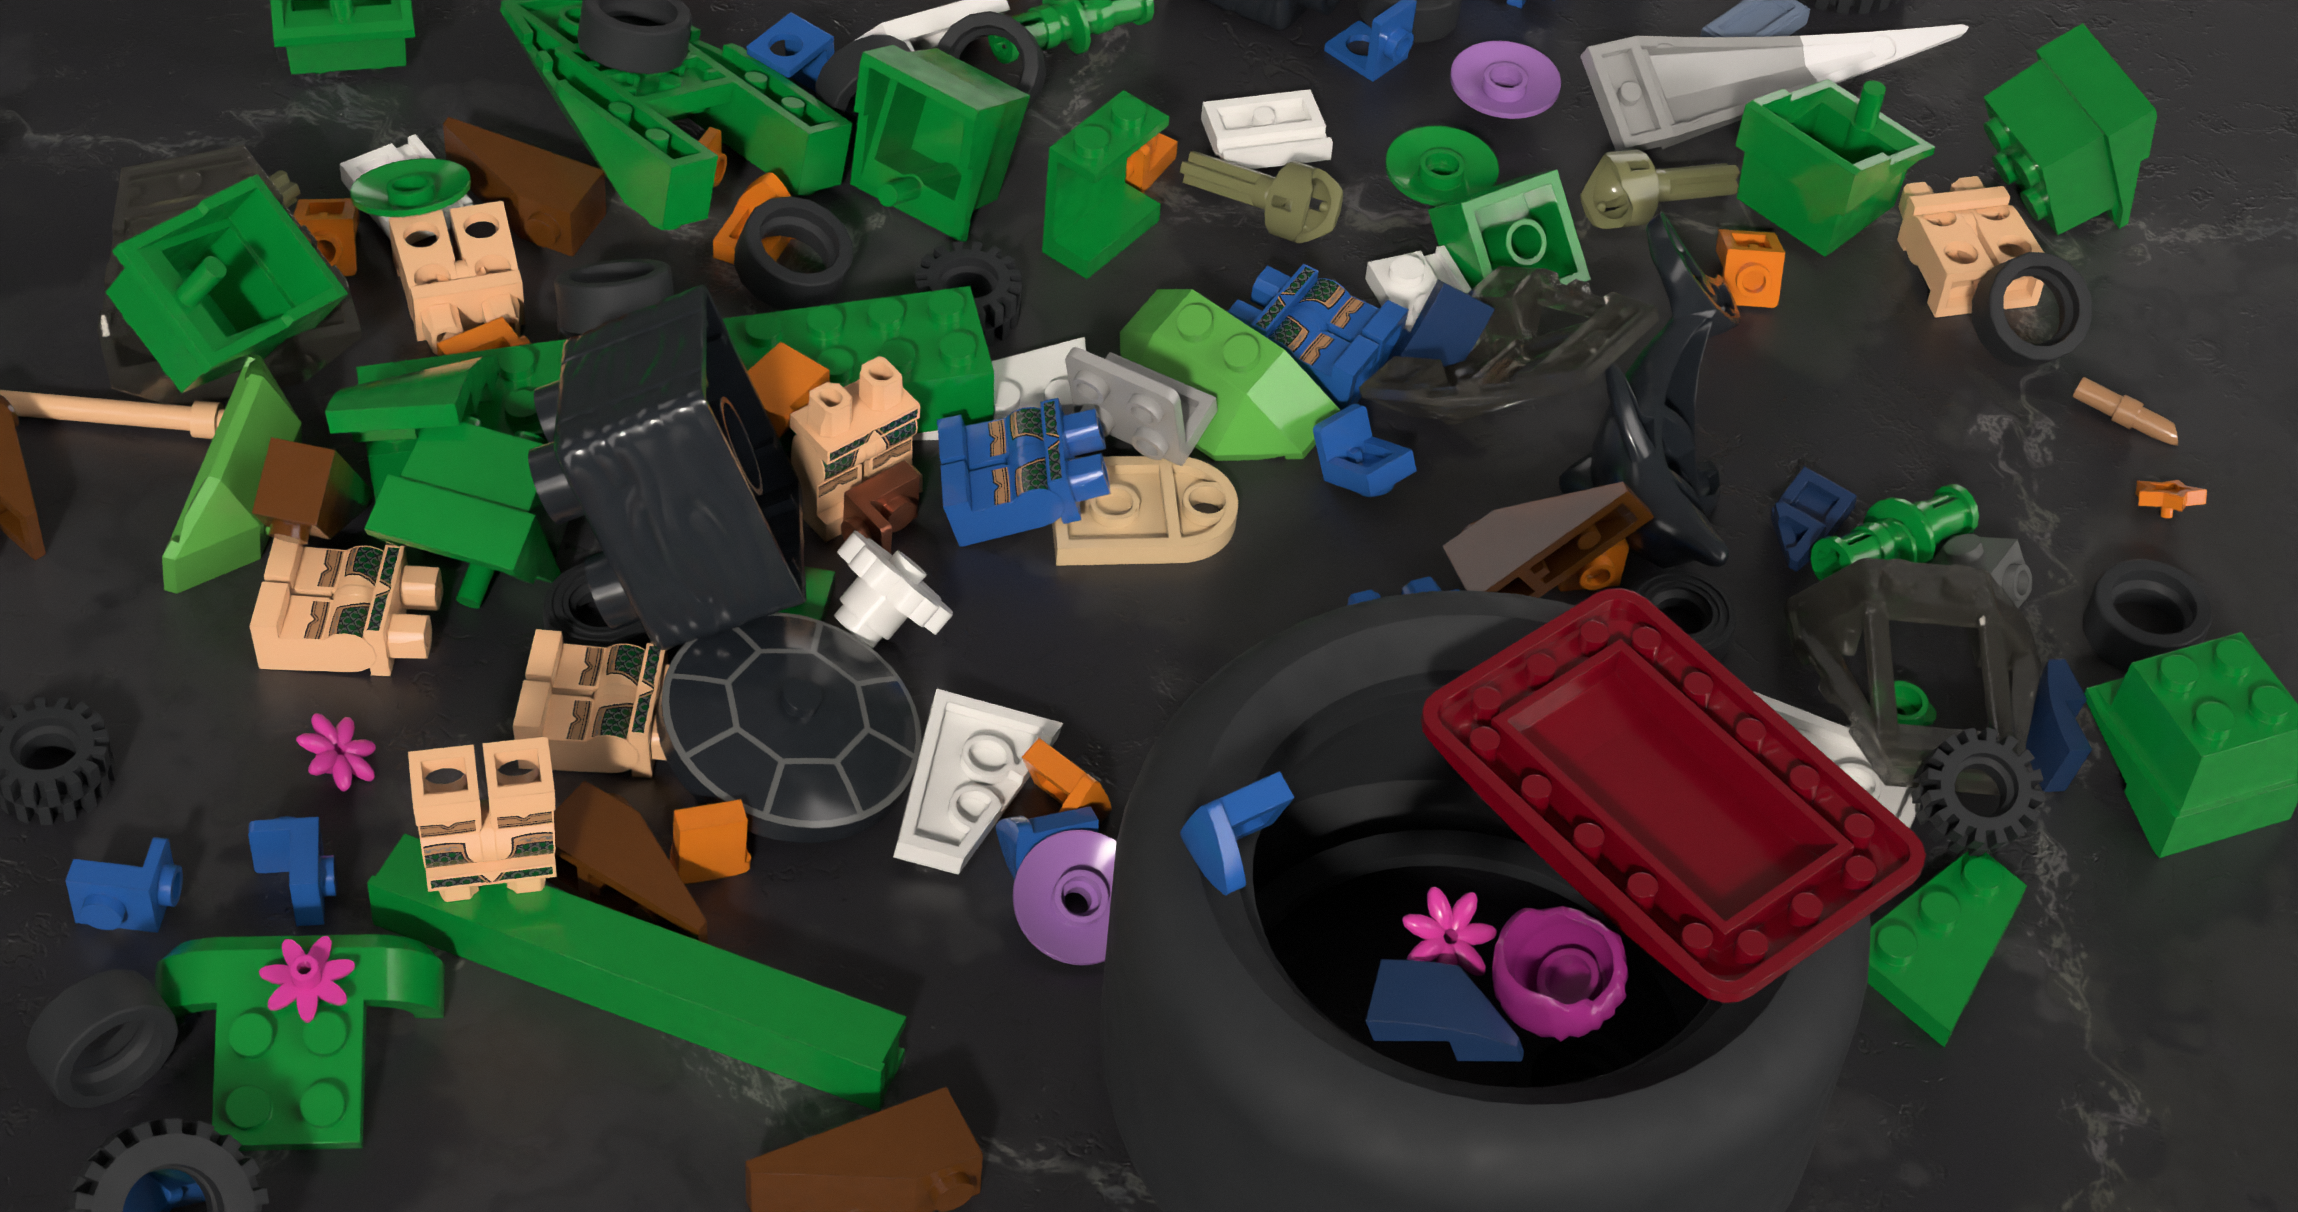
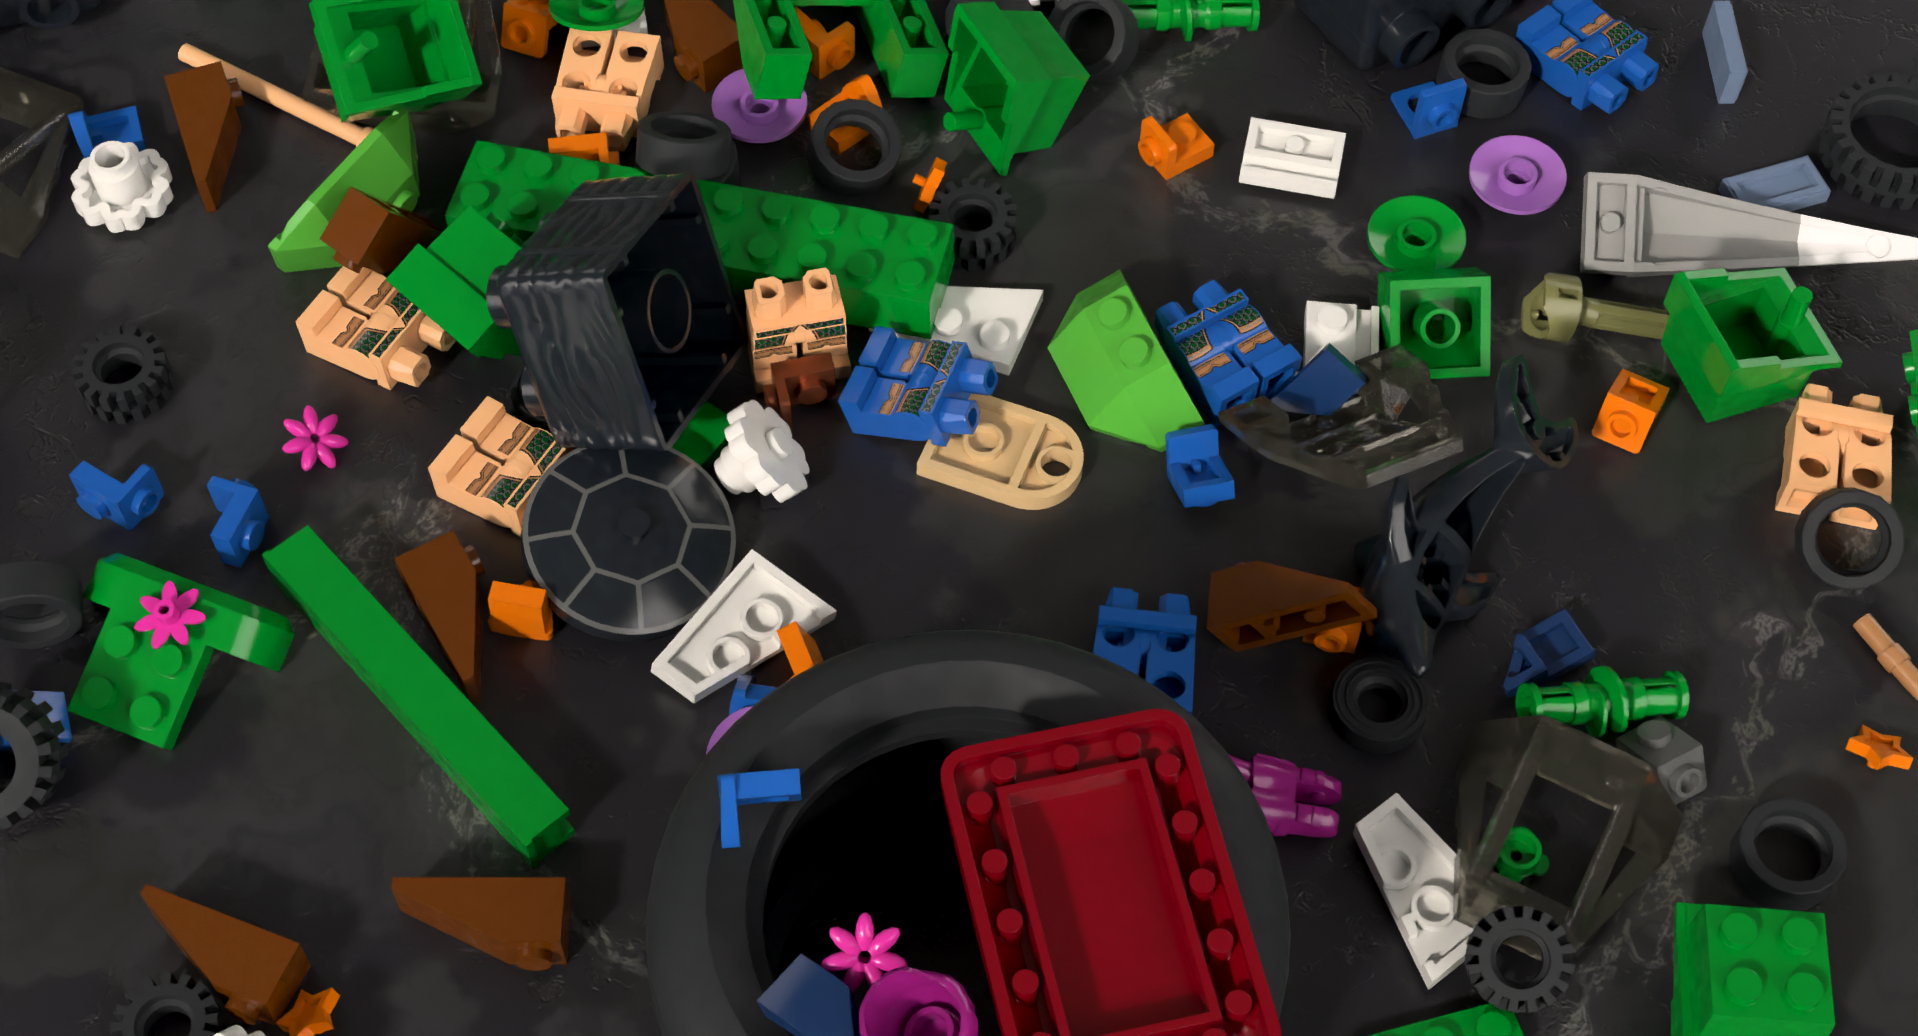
camera: 30 degrees right, 10 degrees up
(405, 403) = (476, 189): green slope -> none
(487, 840) = (326, 545): light nougat hips -> none
(630, 236) = (752, 118): none -> medium lavender dish
(784, 383) = (754, 259): orange tile -> none
(898, 268) = (929, 184): none -> orange piece
(1087, 202) = (1110, 168): green panel -> none
(1140, 404) = (1039, 366): light grey bracket -> none
(1282, 197) = (1266, 223): olive piece -> none
(2054, 732) = (1632, 930): dark blue slope -> none

